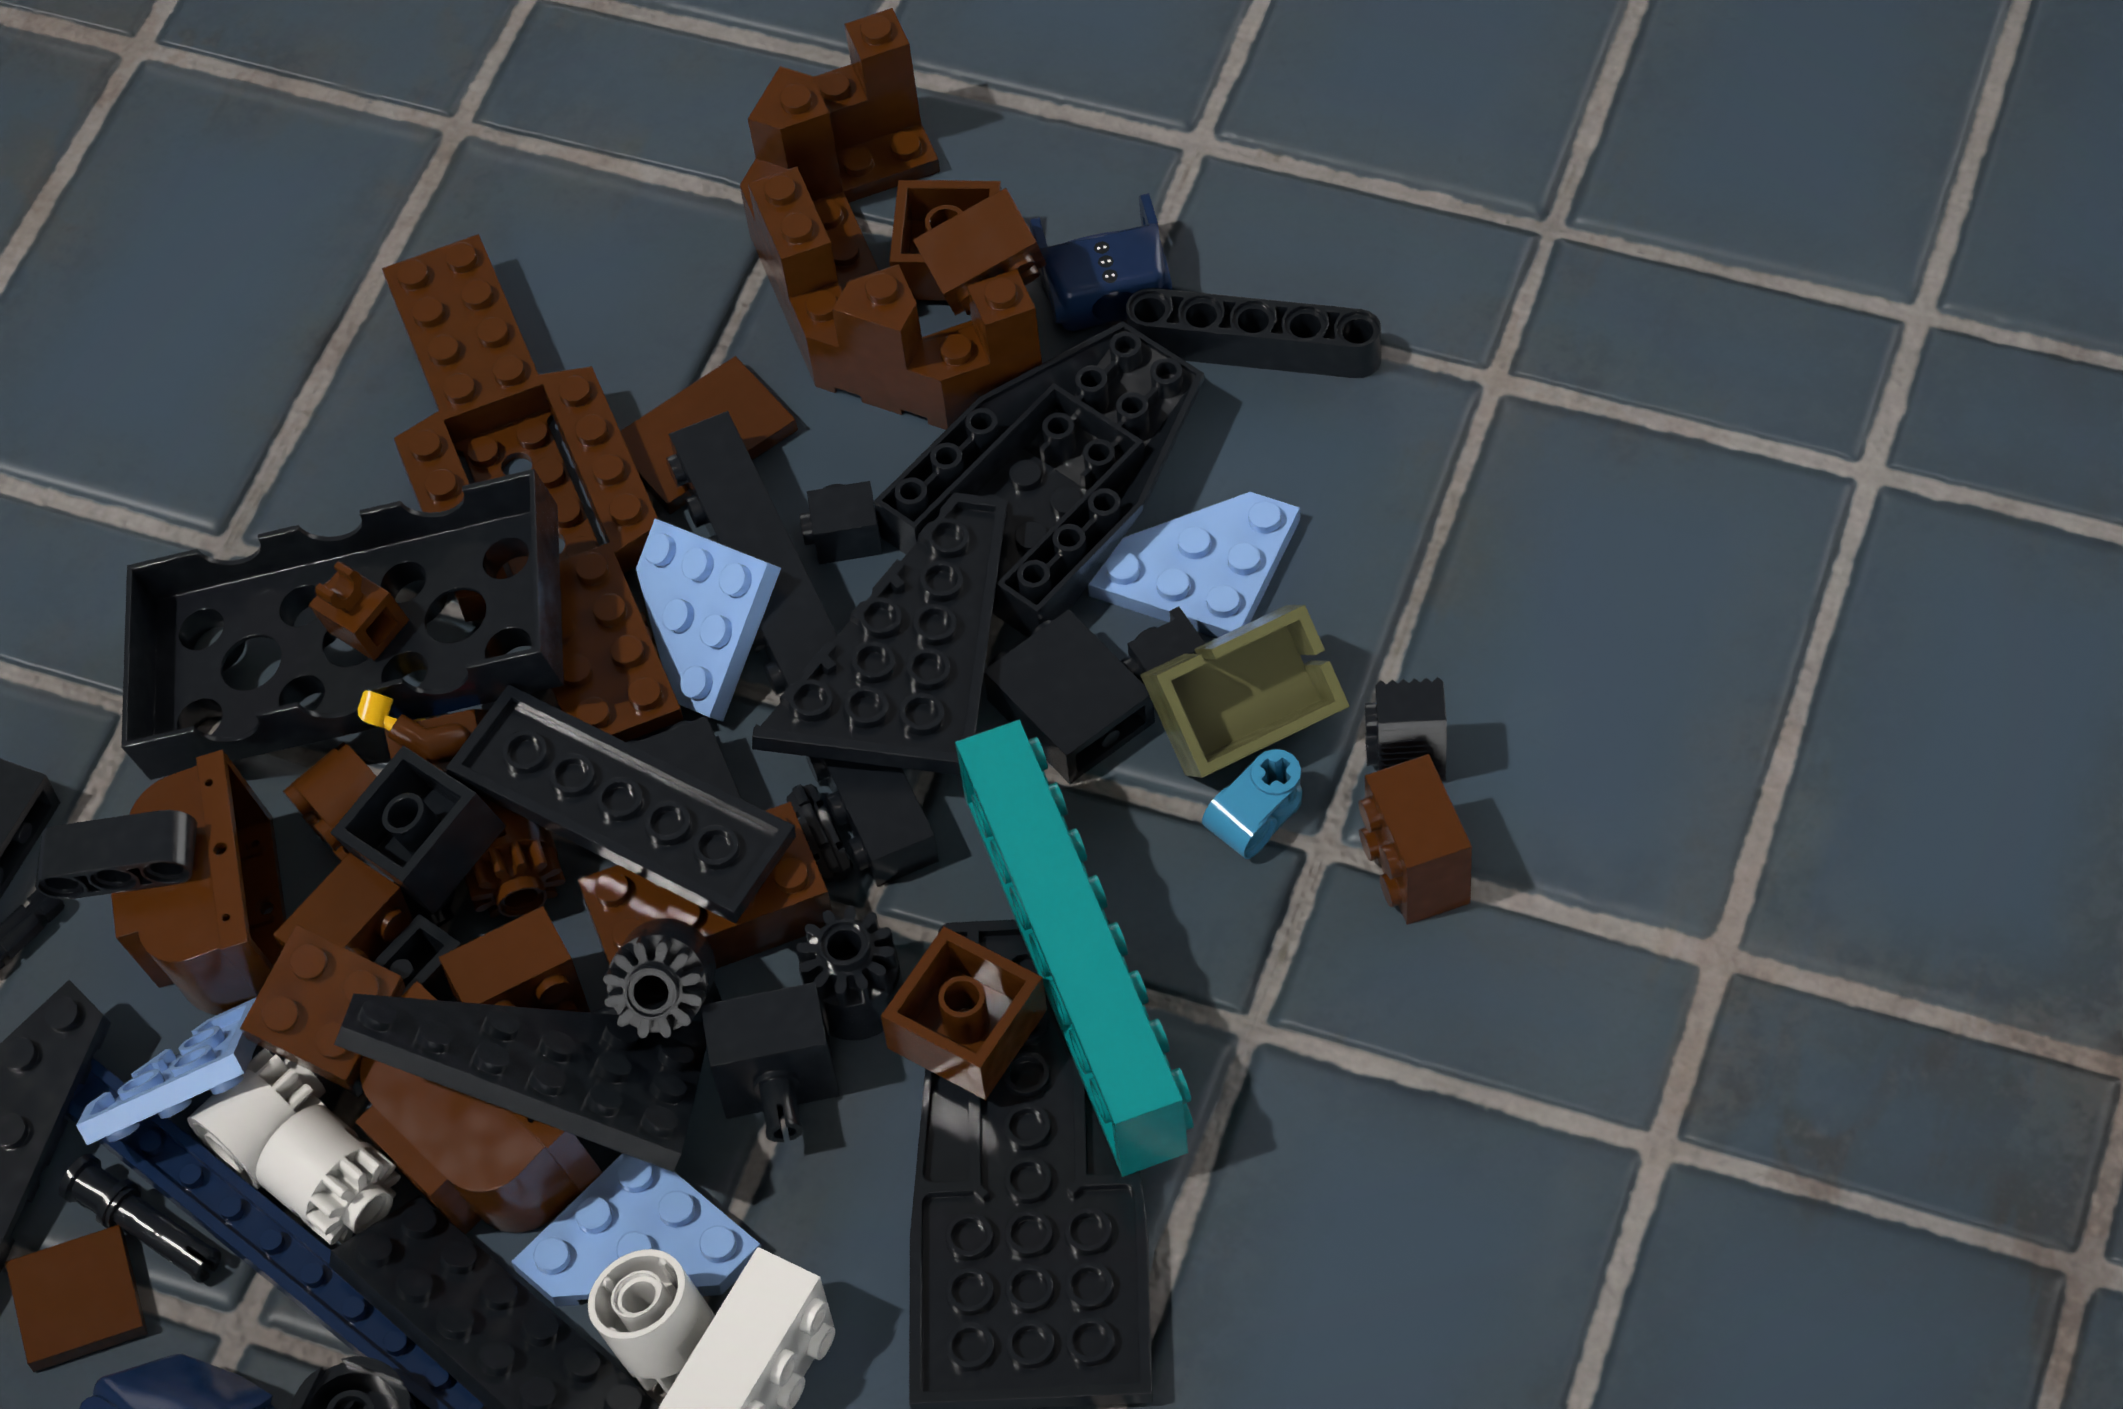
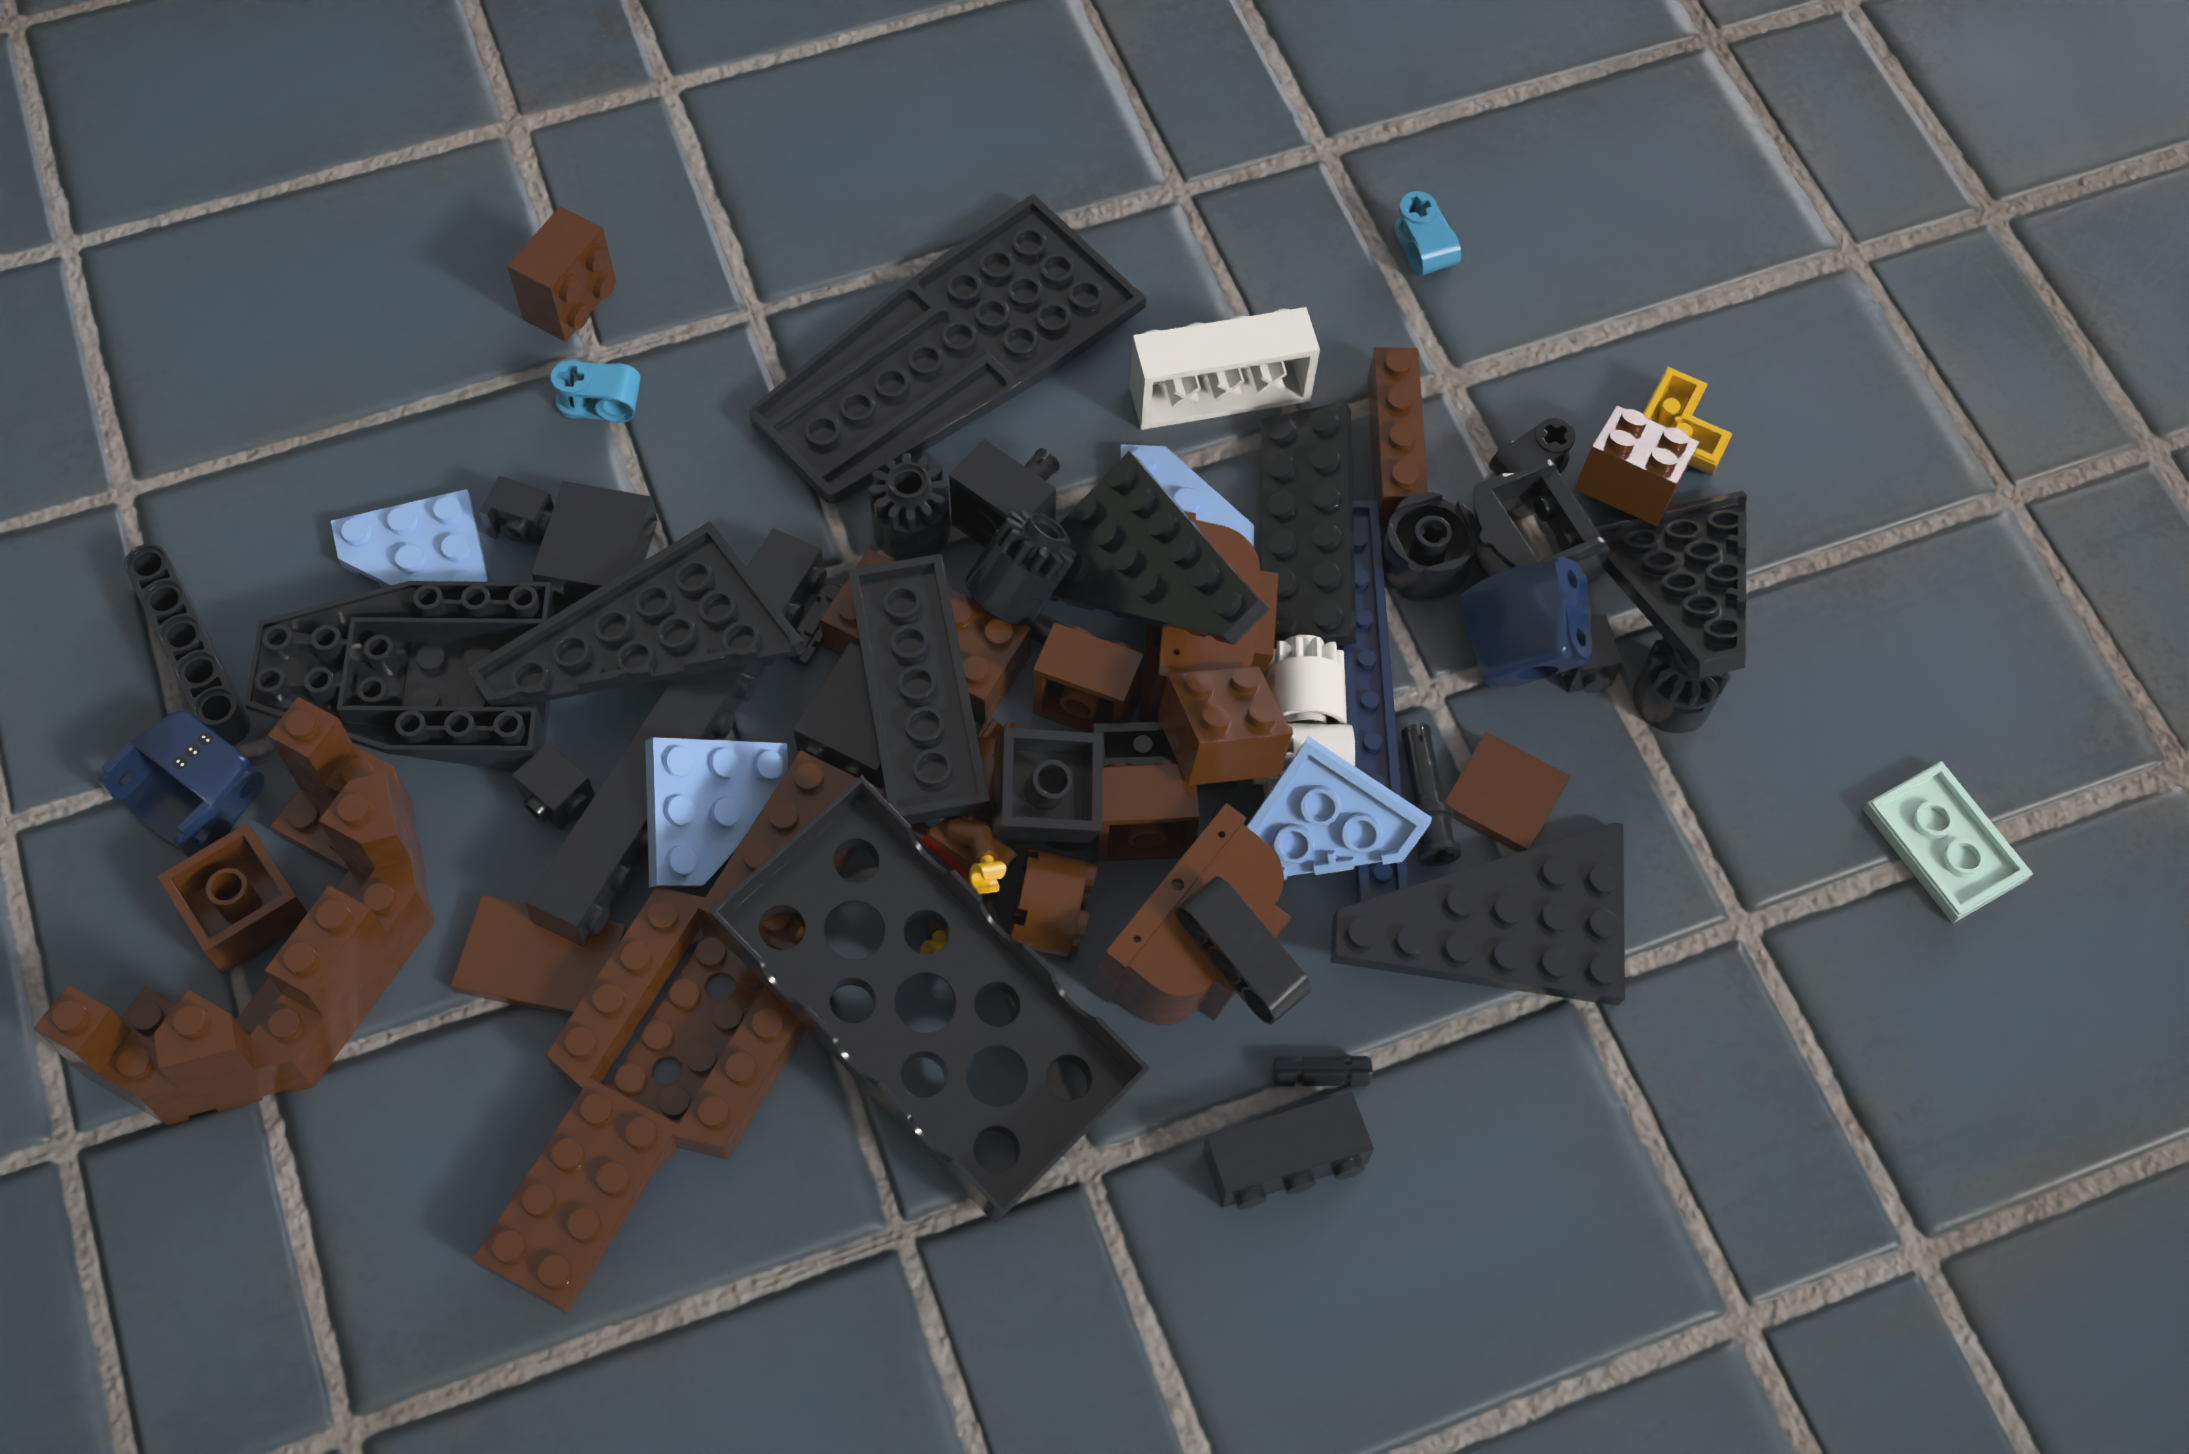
camera: 140 degrees left, 5 degrees up
(358, 611) = (910, 988): reddish brown brick -> none
(649, 1315) = (1226, 430): white gear -> none
(964, 1012) = (891, 406): reddish brown brick -> none
(978, 246) = (257, 794): reddish brown brick -> none
(1075, 948) = (794, 378): teal brick -> none
(1244, 691) = (520, 426): olive piece -> none
(1407, 724) = (482, 324): black brick -> none

